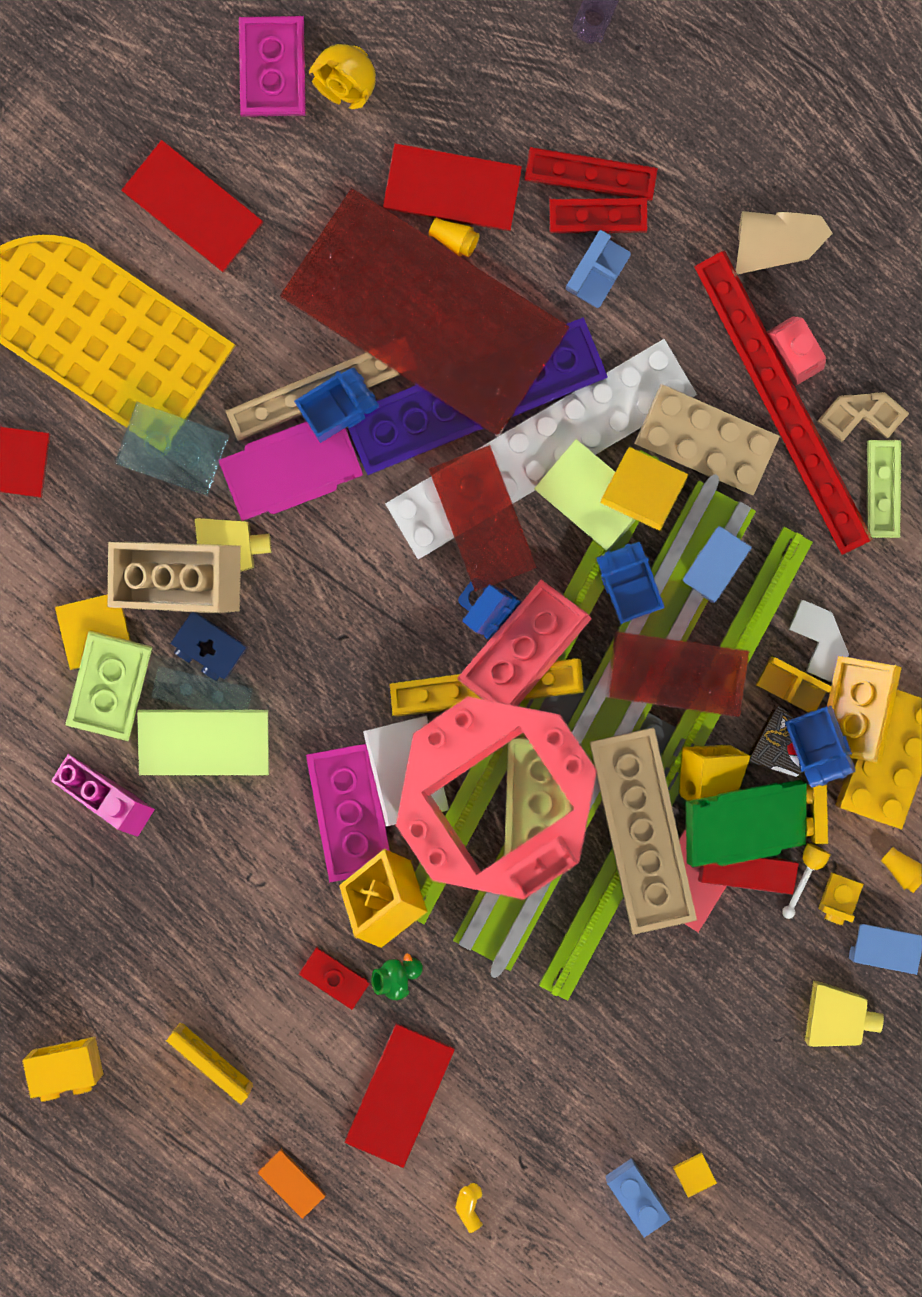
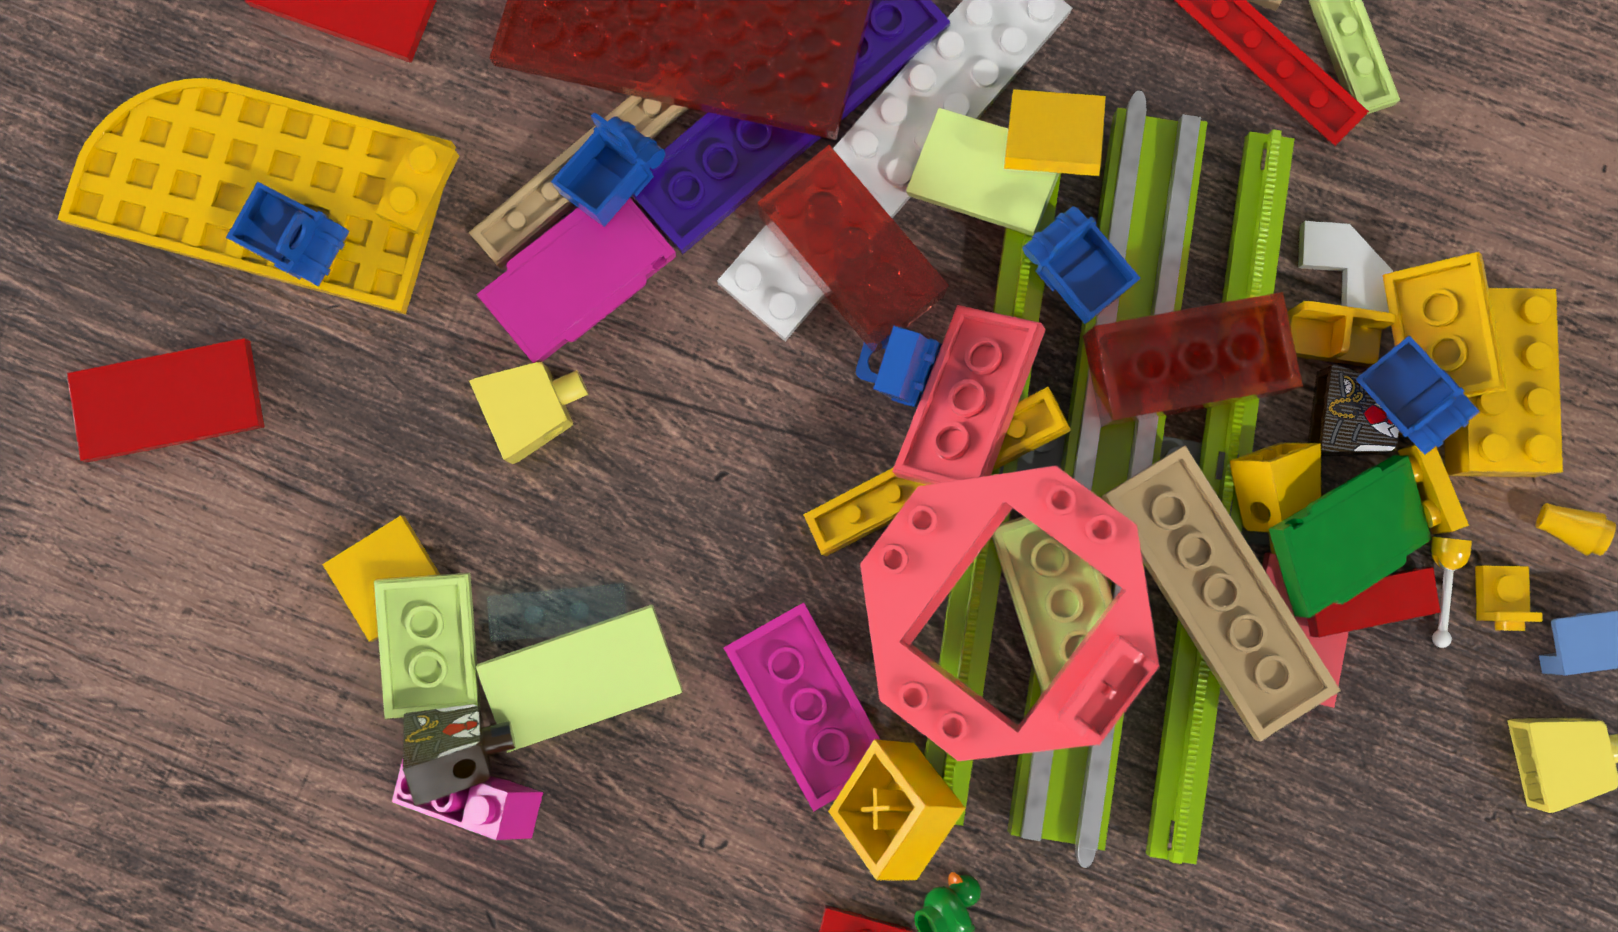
camera: 10 degrees left, 5 degrees down
(104, 376) = (288, 234): none -> blue piece
(105, 761) = (450, 750): none -> dark brown torso
(171, 448) = (410, 301): clear light blue tile -> none
(174, 576) = (463, 462): tan brick -> none
(198, 630) = (517, 540): dark blue brick -> none
(202, 368) = (417, 183): none -> yellow plate
(389, 757) = (838, 612): white tile -> none
(706, 439) = (1107, 55): tan plate -> none
(716, 564) = (1190, 197): medium blue panel -> none

